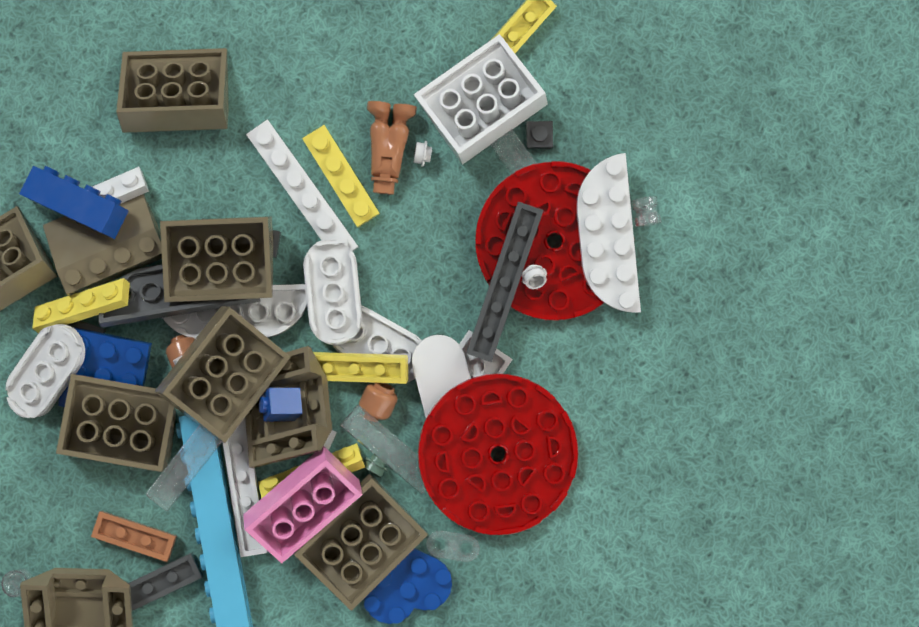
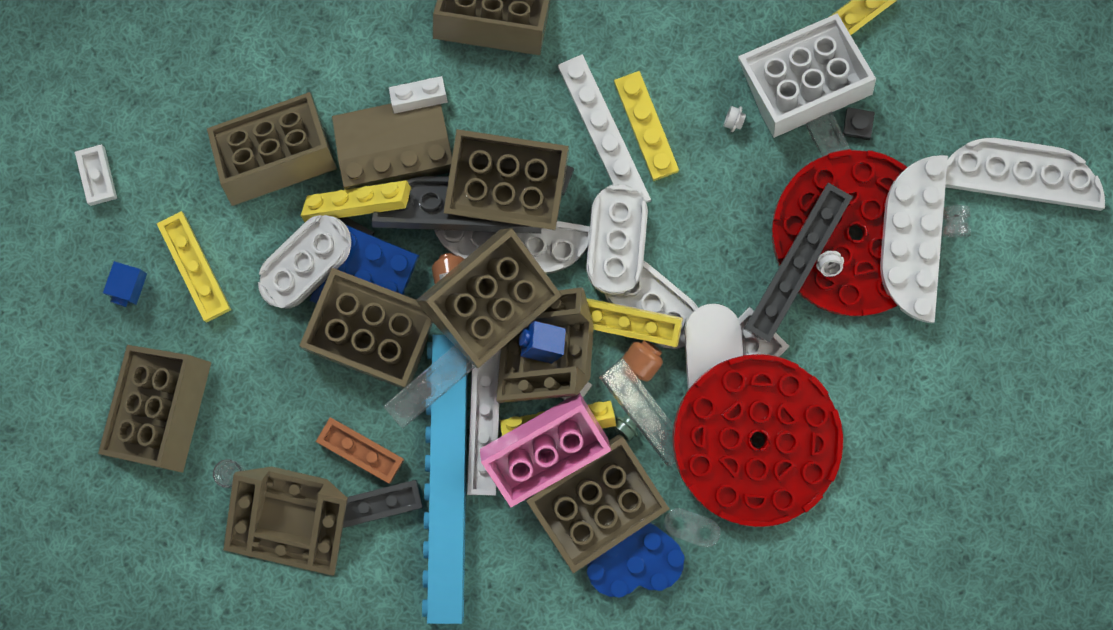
camera: 10 degrees right, 5 degrees down
(73, 201) = (371, 96): blue brick -> none
(388, 143) = (701, 100): nougat piece -> none
(701, 152) = (1025, 173): none -> white plate

